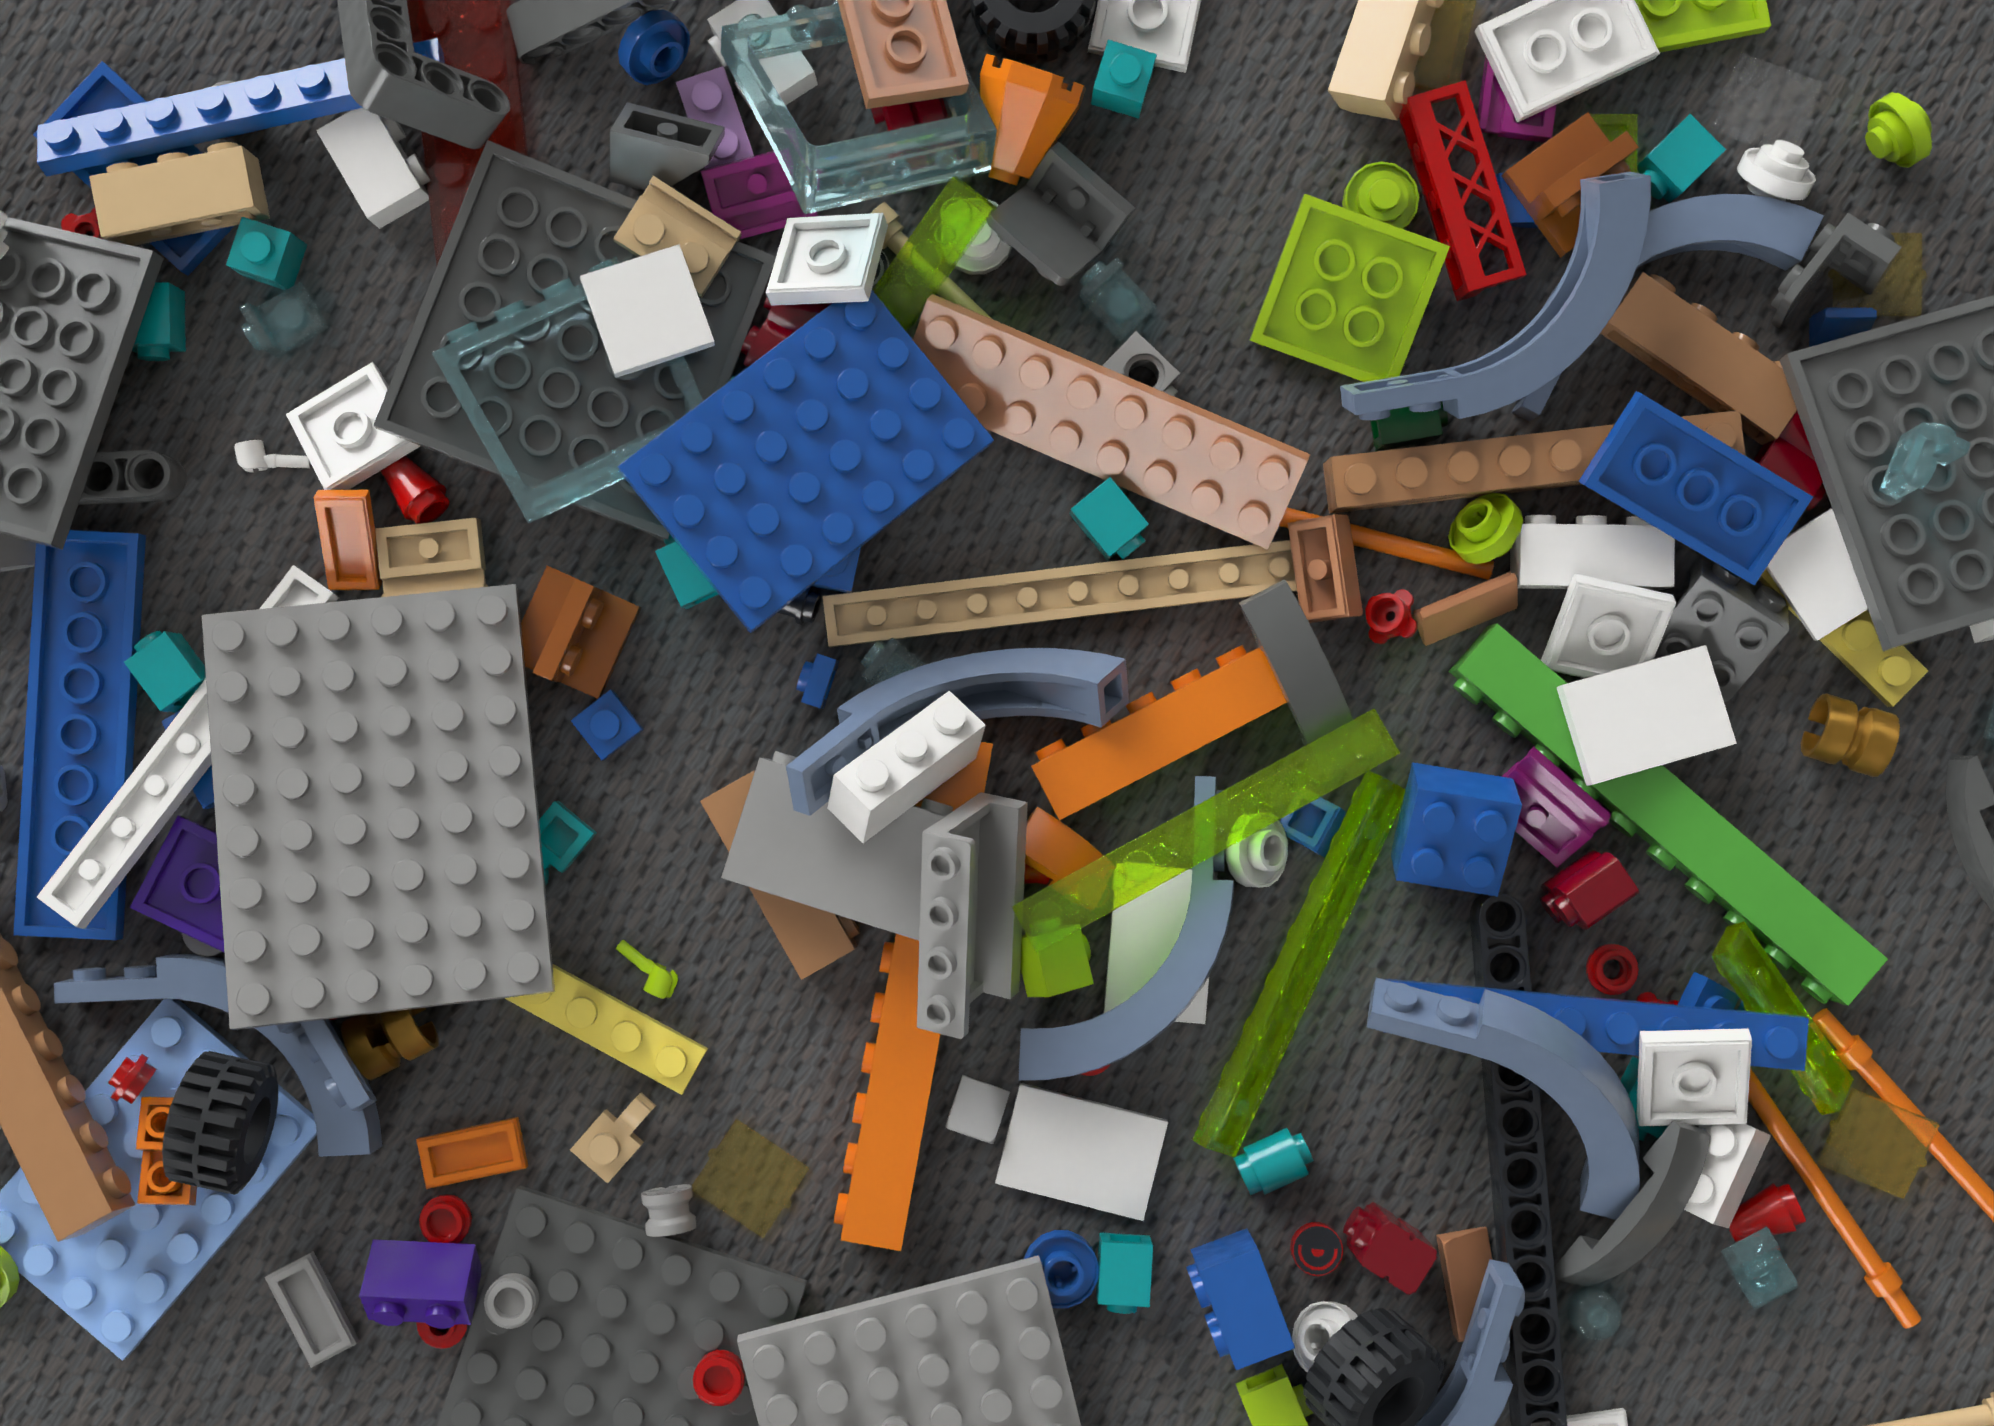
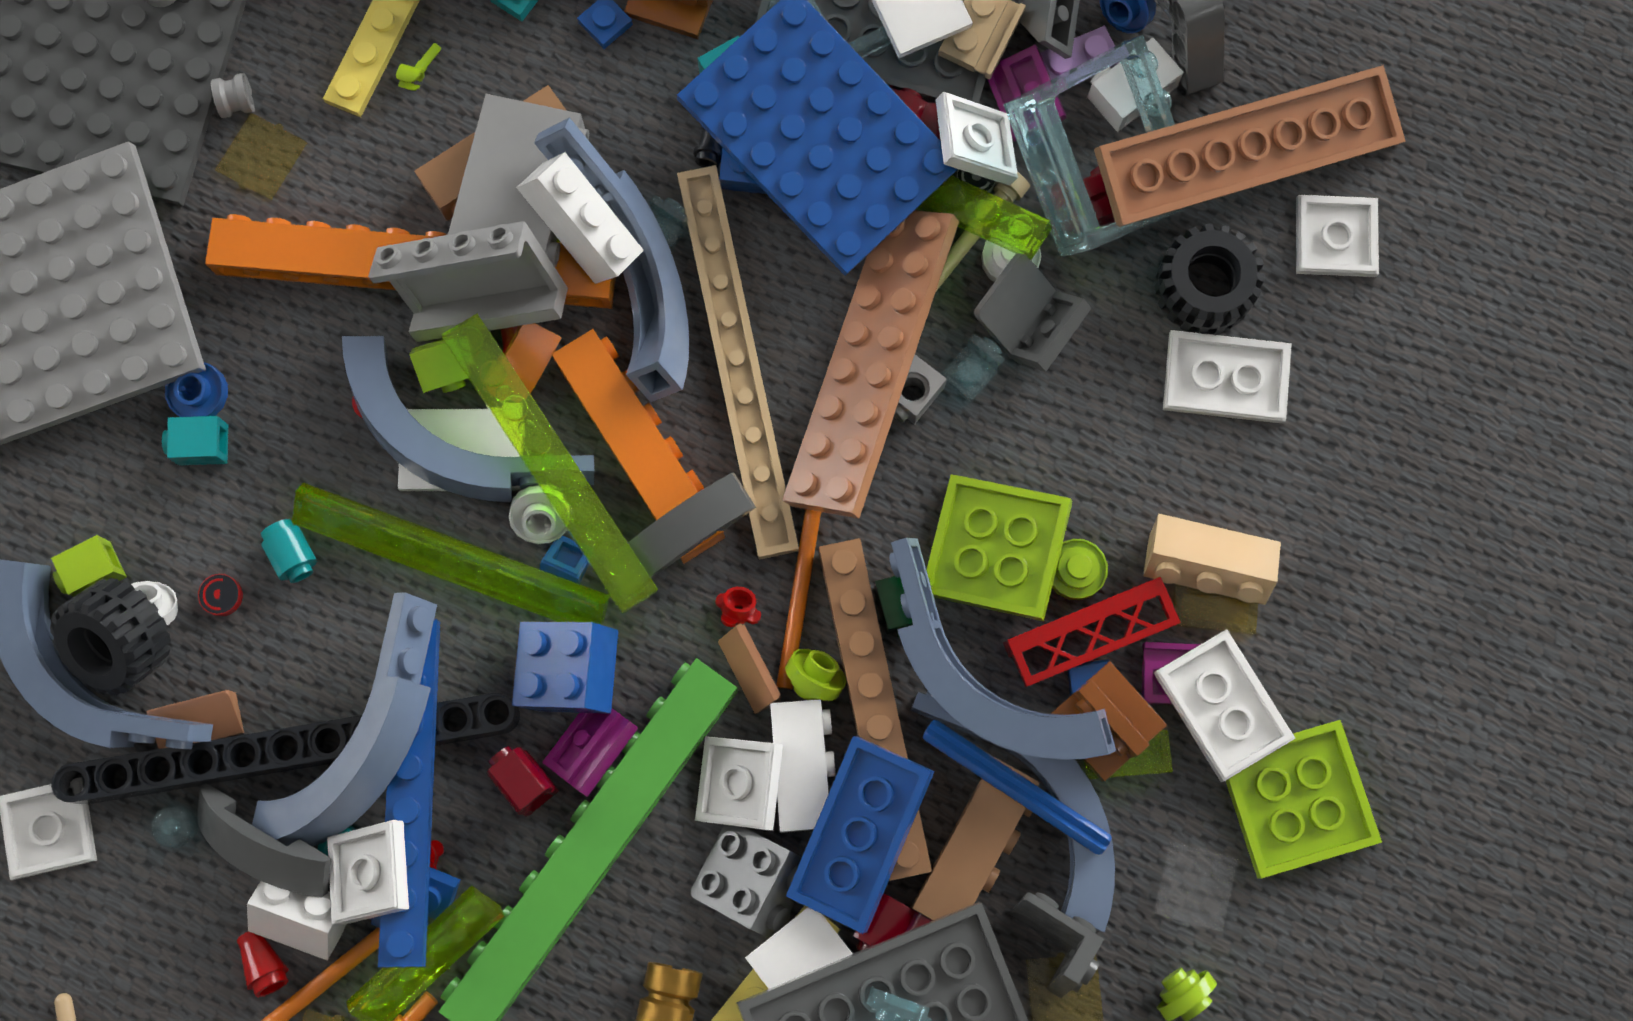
camera: 85 degrees right, 10 degrees down
(611, 1139) = (286, 52): tan plate -> none
(719, 1378) = (101, 136): red tile -> none
(817, 680) = (649, 168): blue plate -> none
(977, 1109) = (320, 319): light grey slope -> none
(1028, 112) = (1109, 279): orange cone -> none
(1081, 1151) = (291, 403): white tile -> none
(1110, 520) = (794, 377): teal brick -> none
(1123, 78) = (1148, 355): teal brick -> none
(1244, 1305) = (174, 527): blue brick -> none
(1325, 568) = (770, 548): nougat slope -> none
(1389, 1247) = (221, 642): dark red brick -> none
(1628, 969) = (447, 817): red plate -> none
(1646, 715) = (670, 815): white tile -> none
(1650, 298) = (1017, 787): none -> blue axle
(1680, 159) = (1138, 809): teal brick -> none
(1759, 1268) = (216, 960): clear light blue bracket -> none
(1777, 171) = (1138, 892): white plate -> none
(1839, 323) = (1017, 960): blue slope -> none

